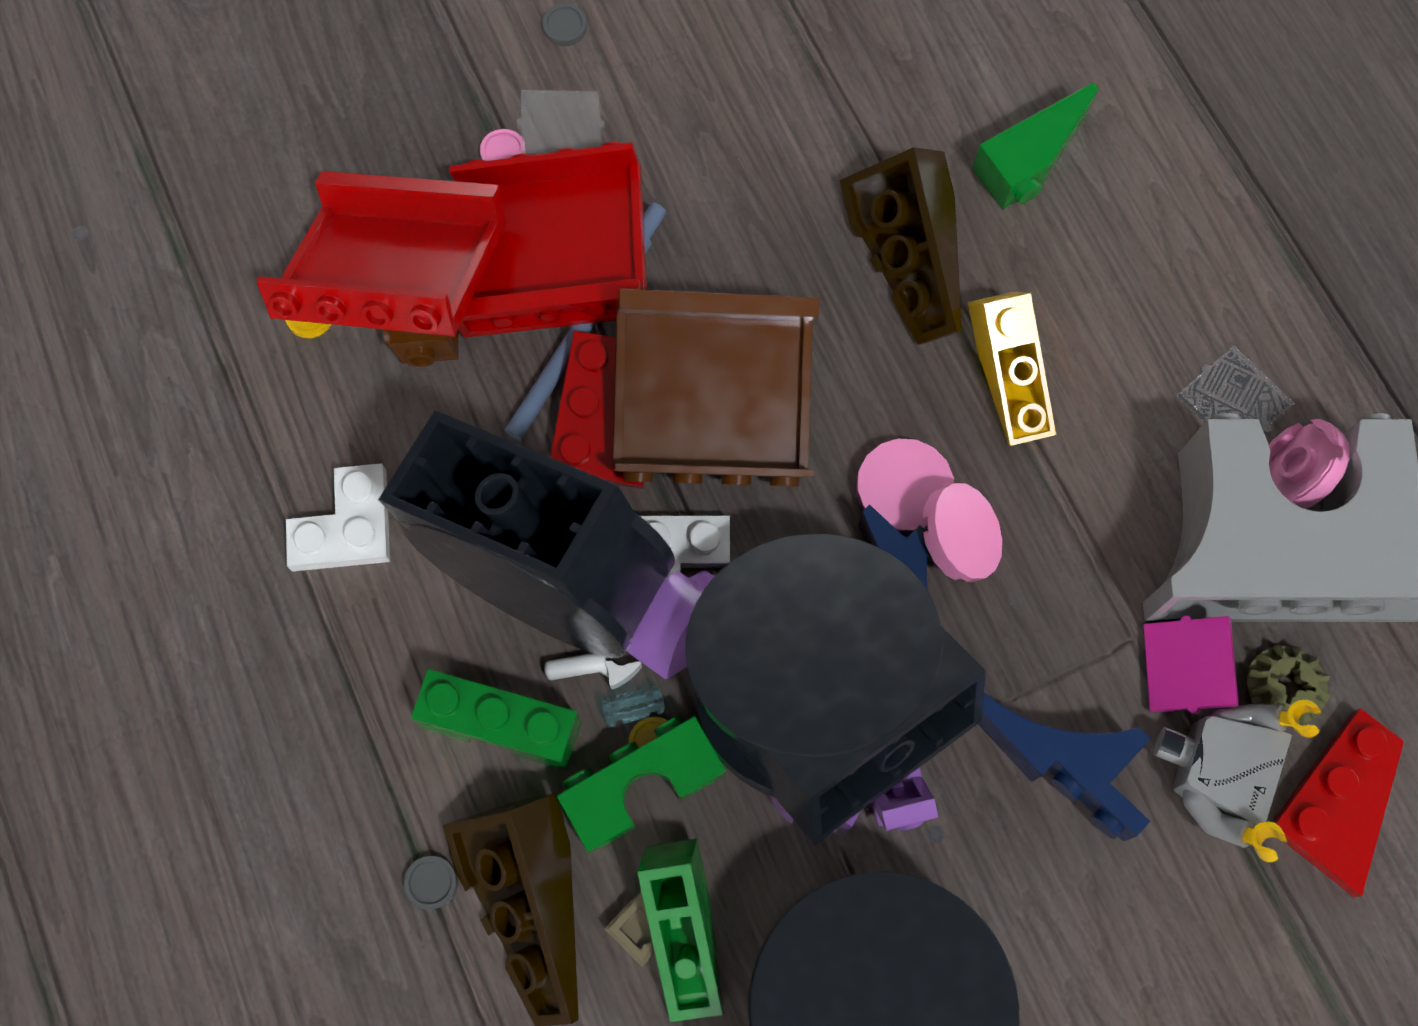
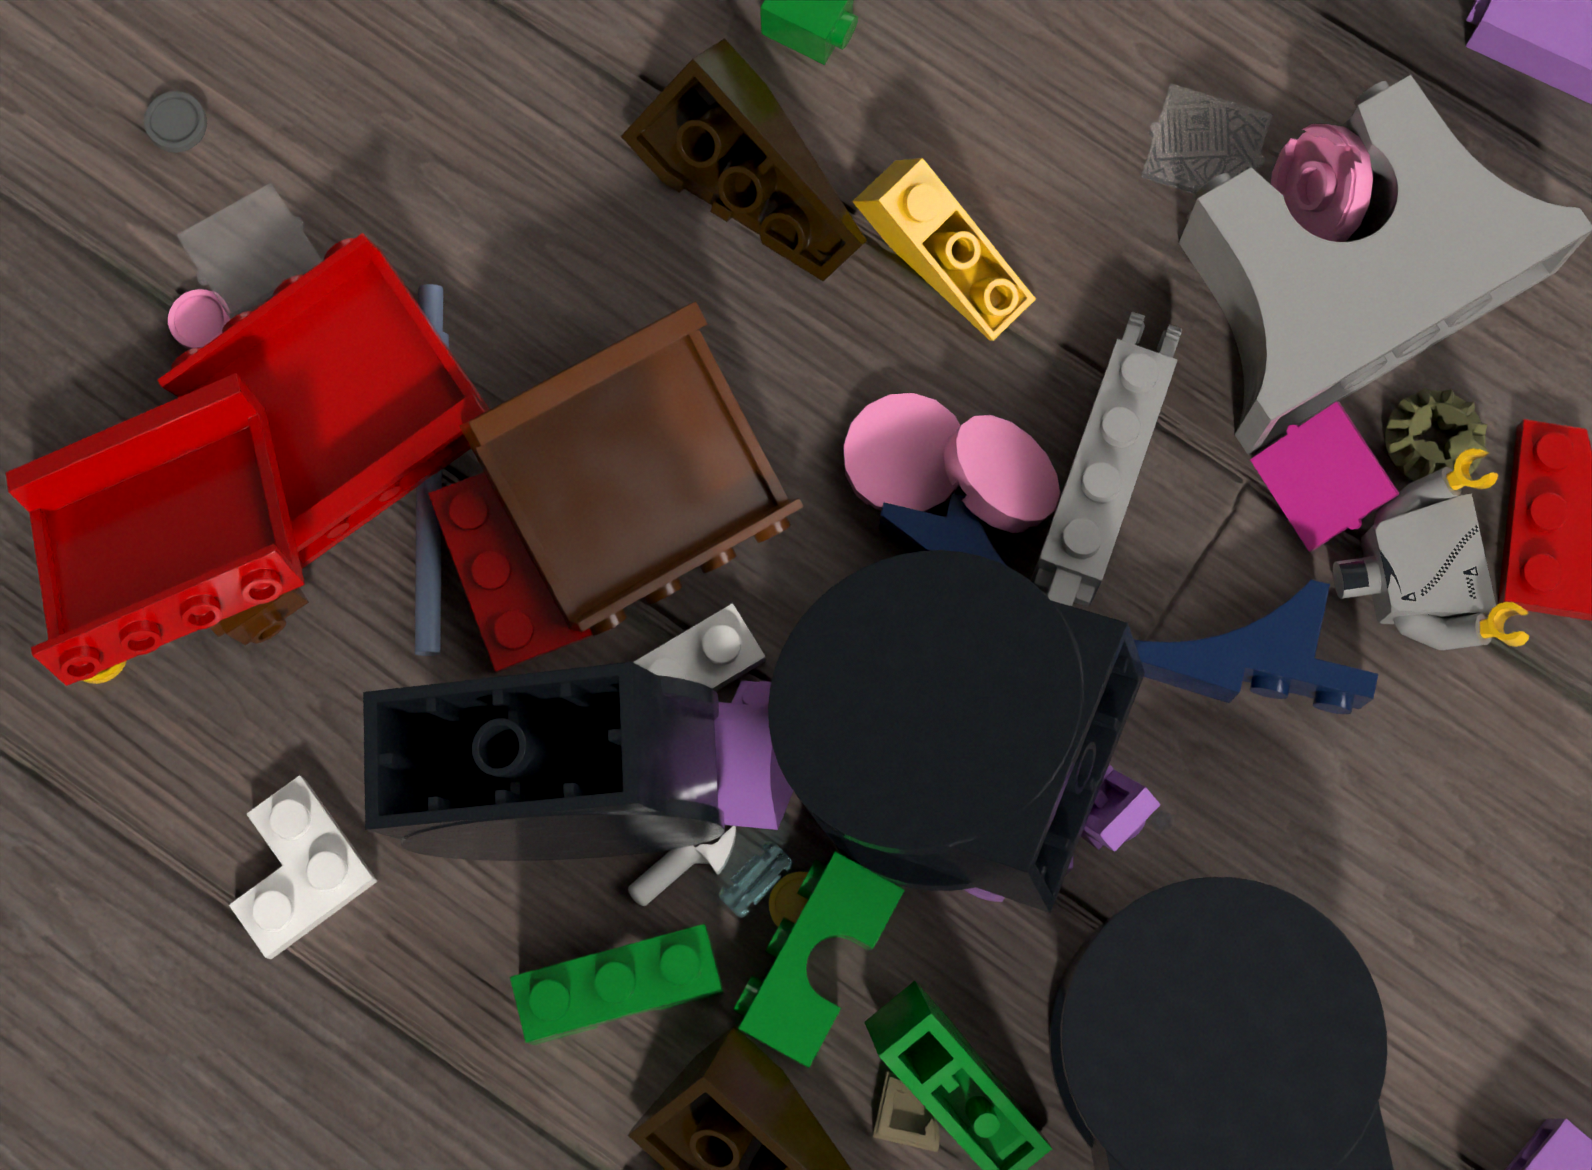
camera: 30 degrees left, 5 degrees up
(1037, 567) = (1106, 466): none -> light grey hinge

